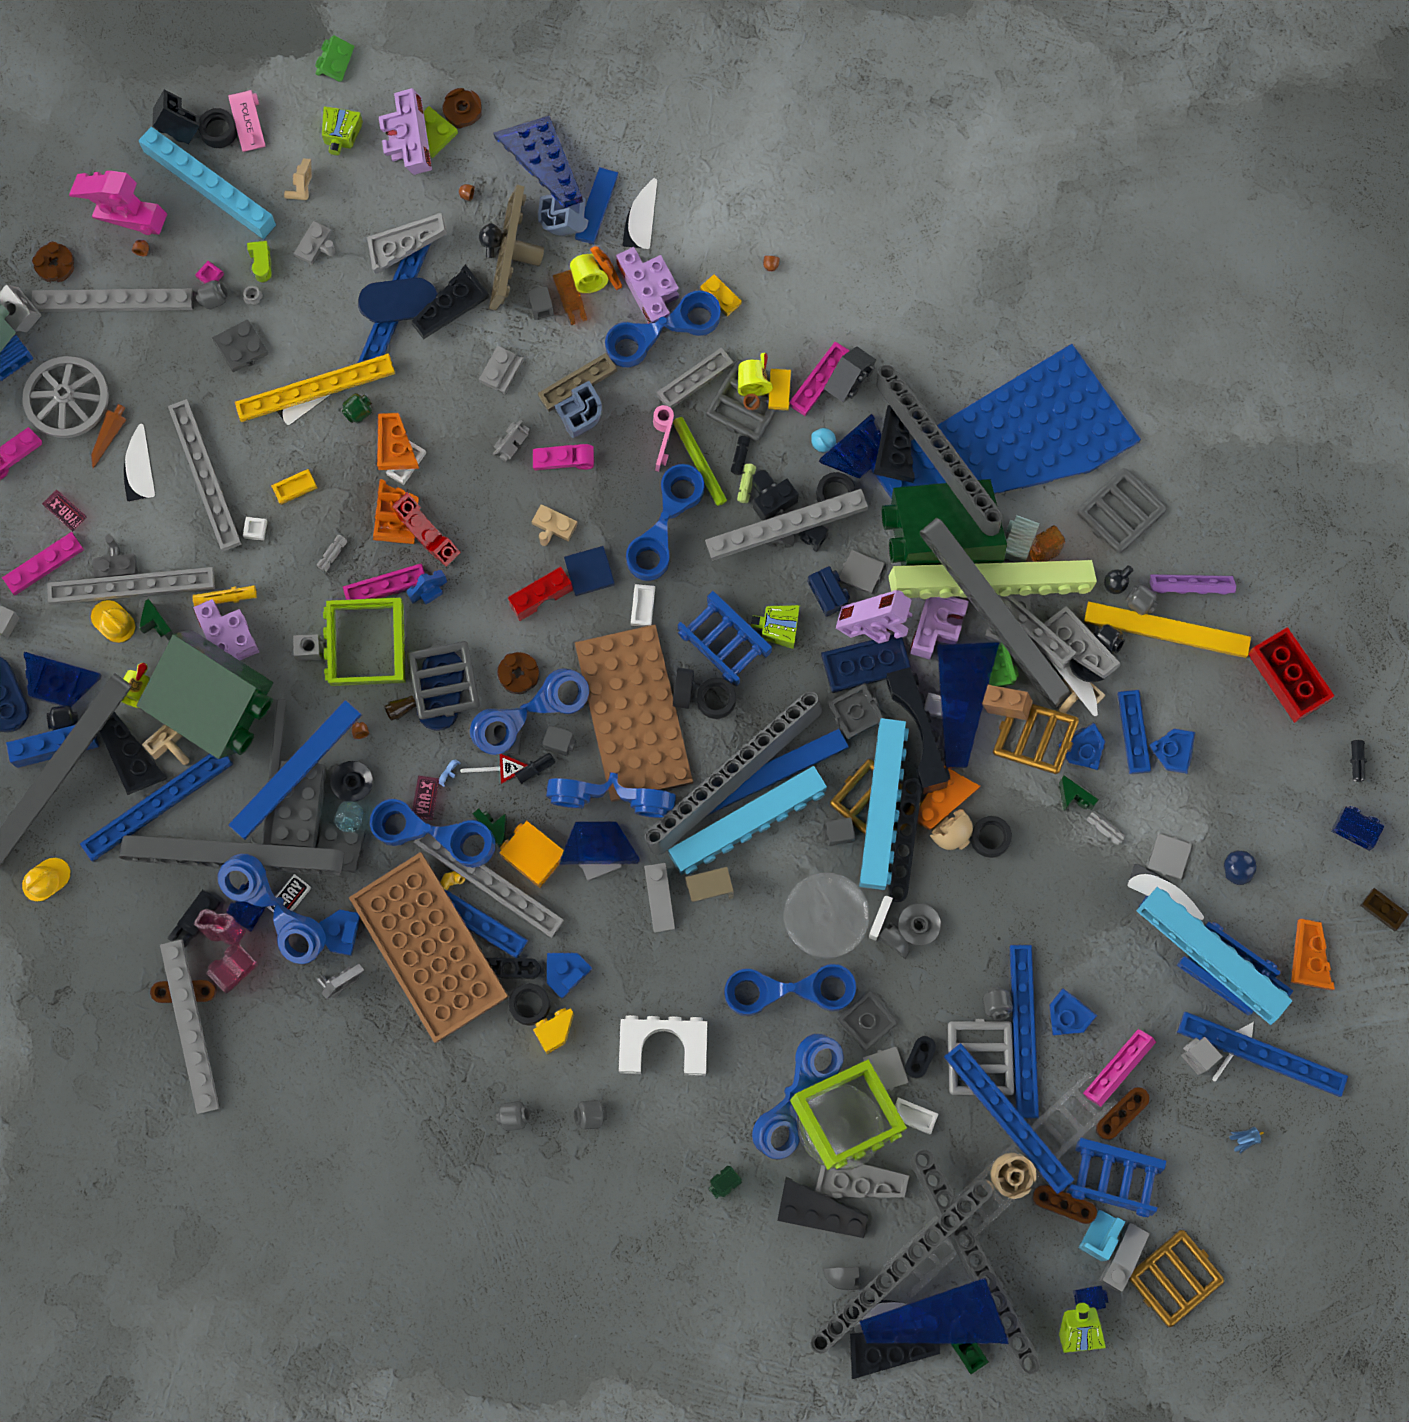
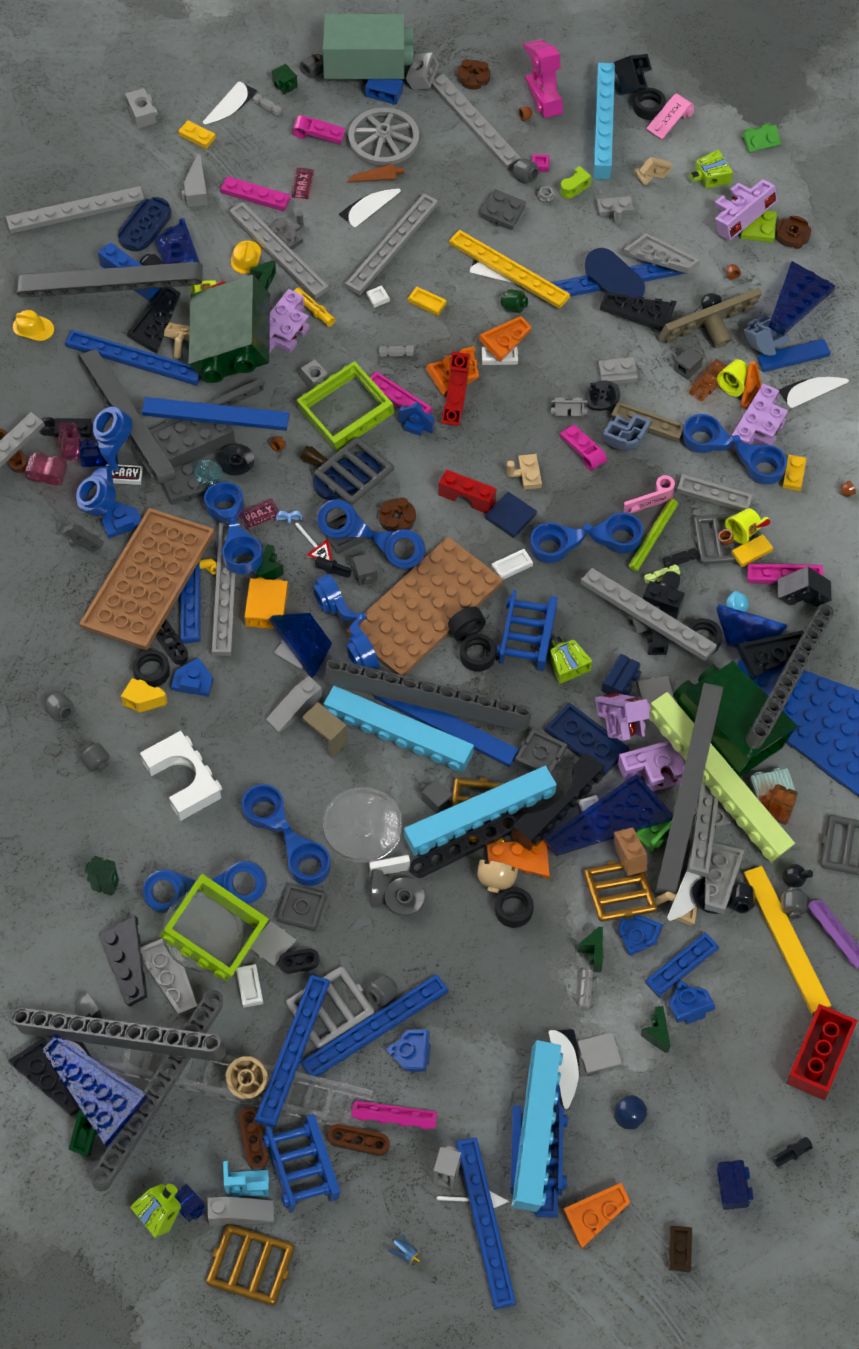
camera: 55 degrees right, 15 degrees down
(527, 395) = (609, 397): none -> black plate
(1188, 793) = (658, 1033): none -> dark green slope

